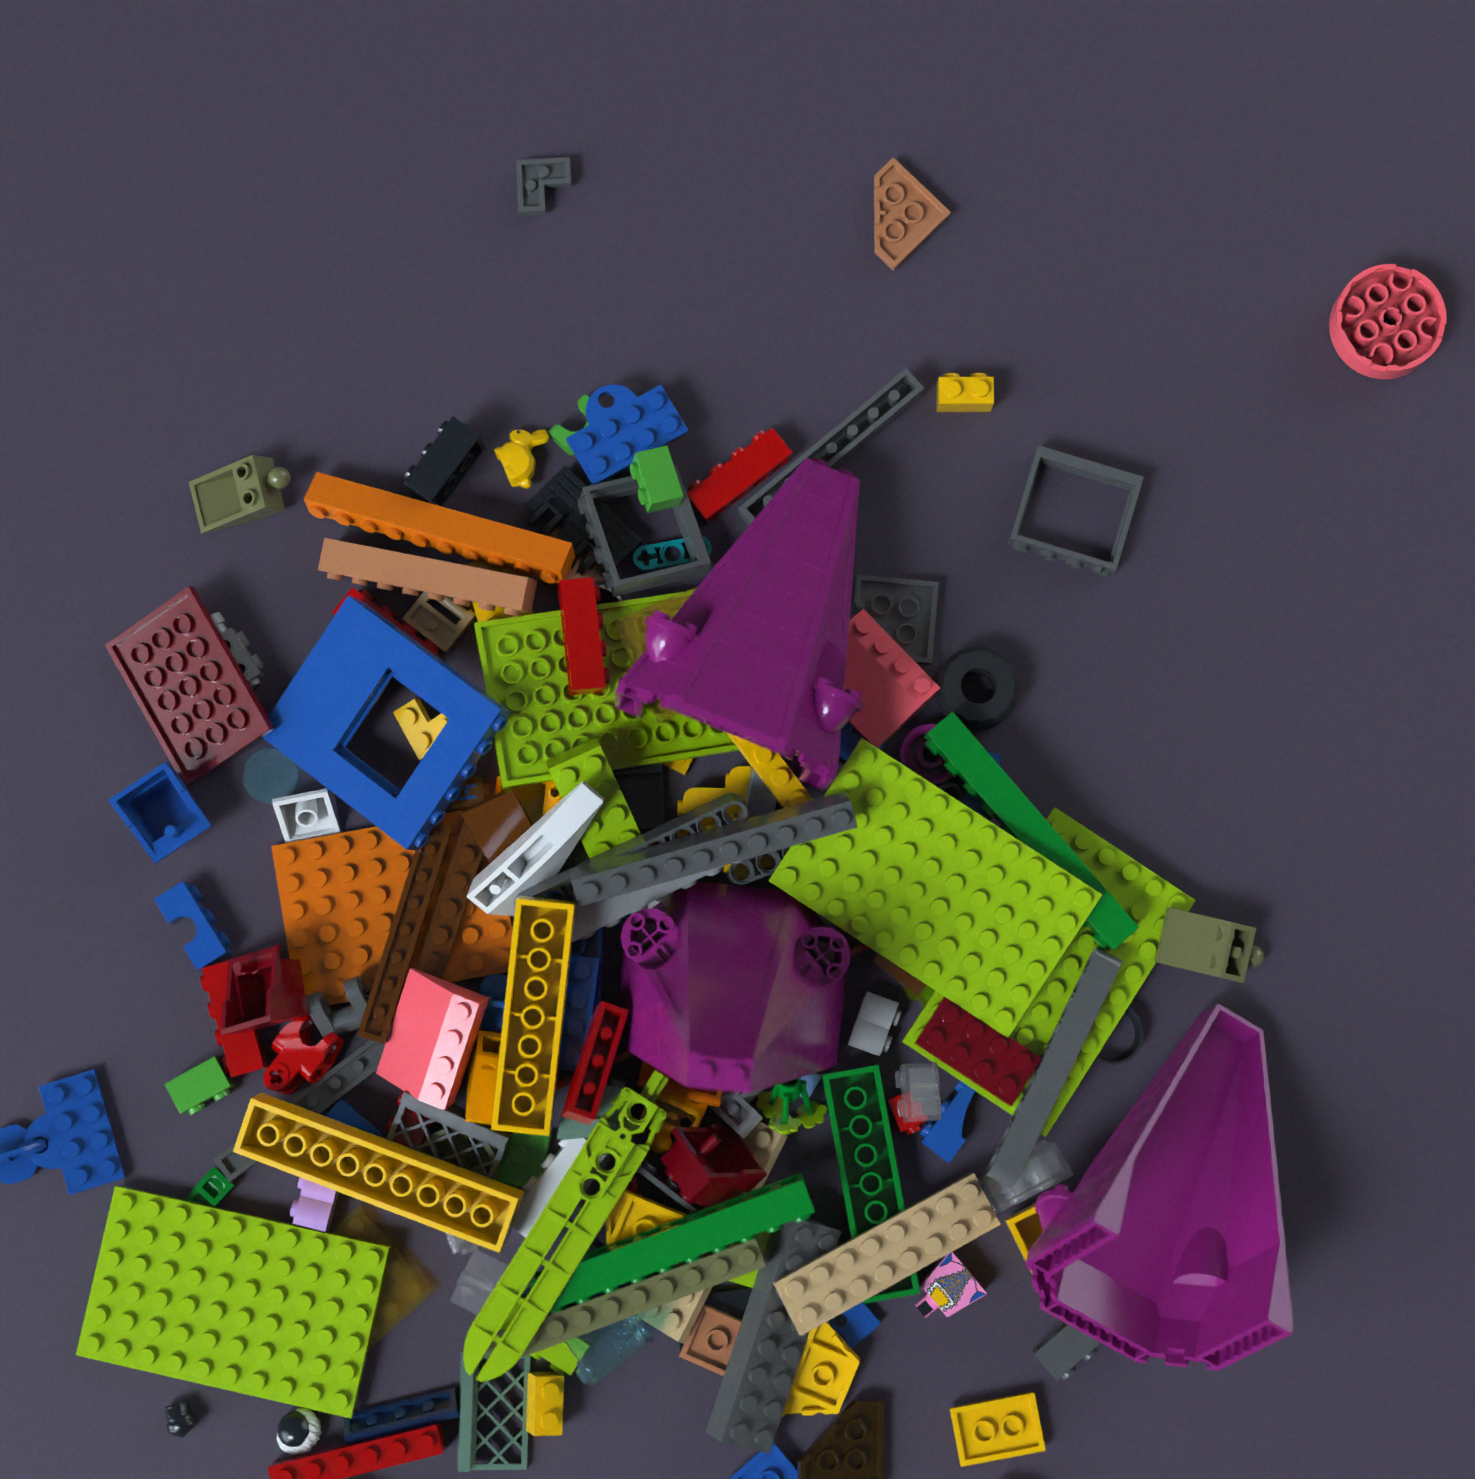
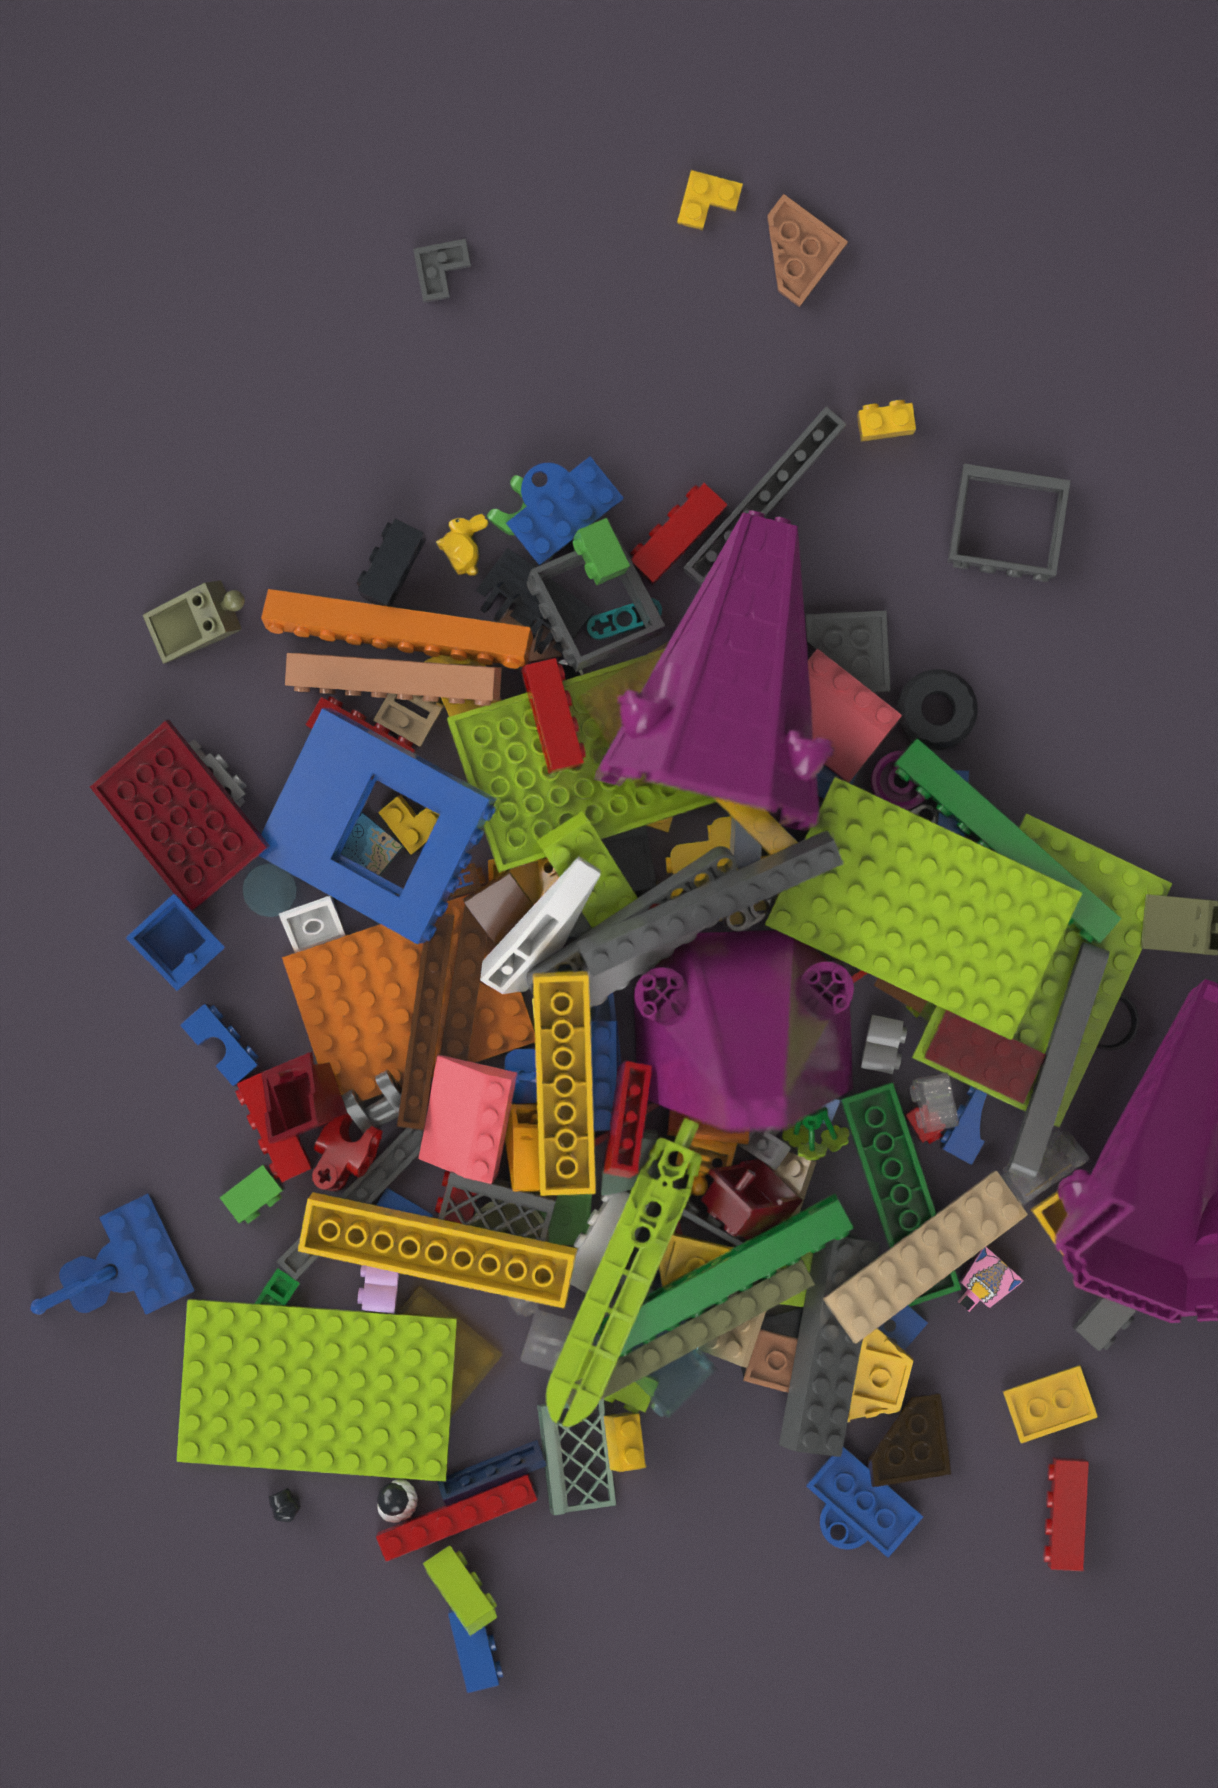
camera: 10 degrees left, 5 degrees up
(379, 745) = (371, 845): none -> tile
(816, 145) = (704, 191): none -> yellow plate

